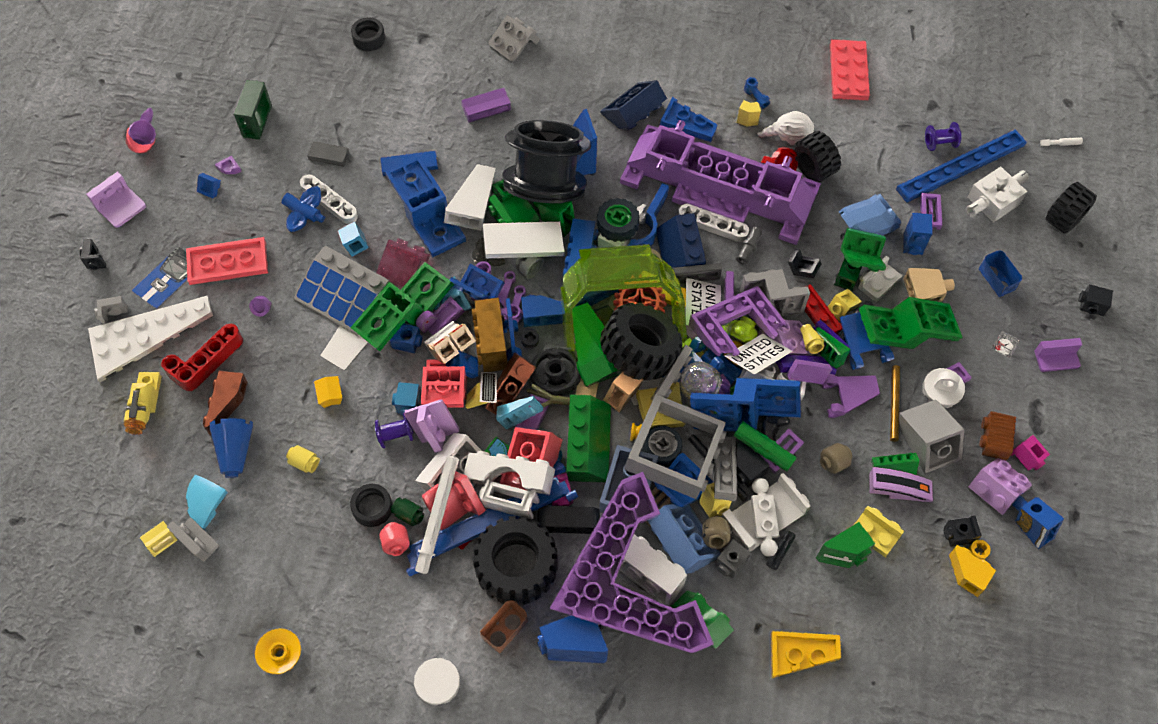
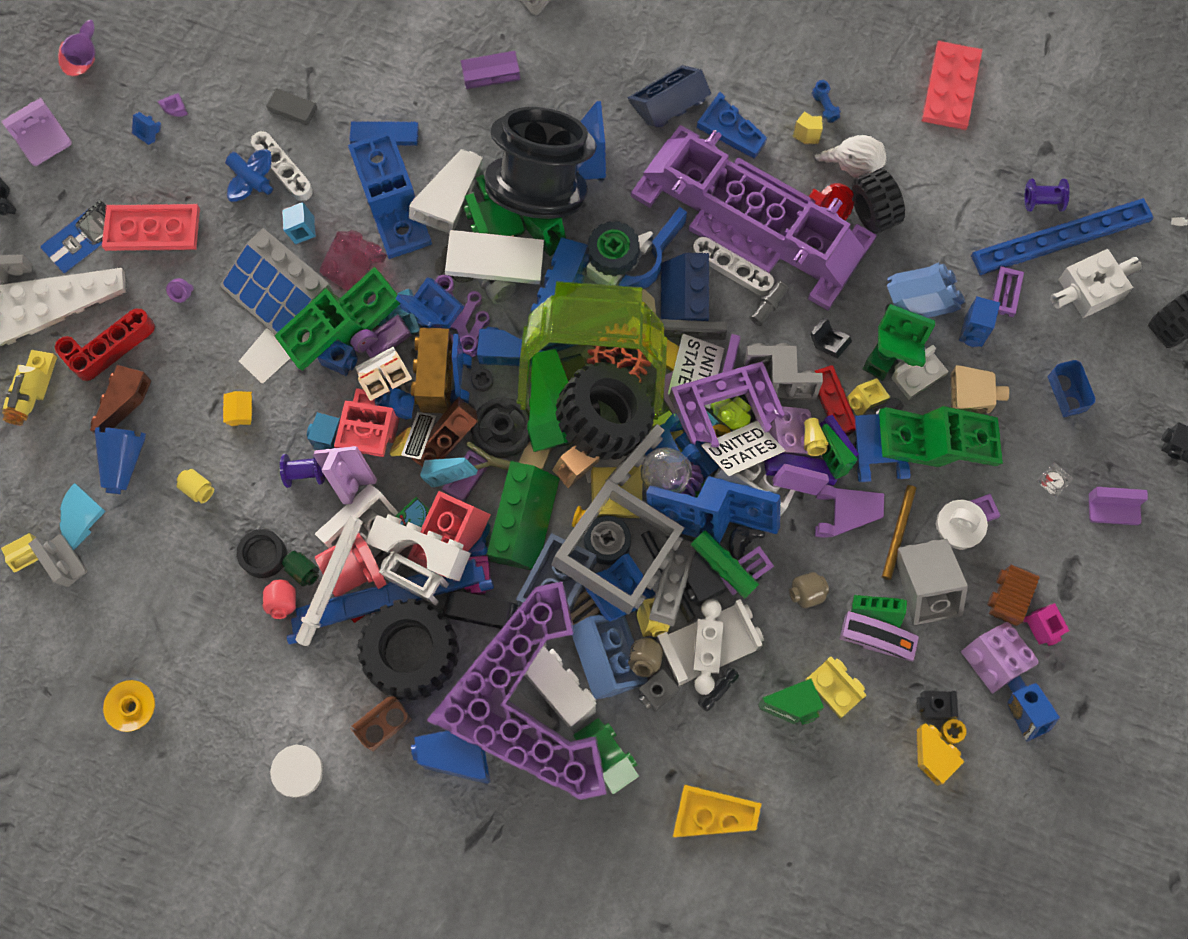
camera: 15 degrees right, 10 degrees up
(253, 109) = (210, 38): dark green window -> none

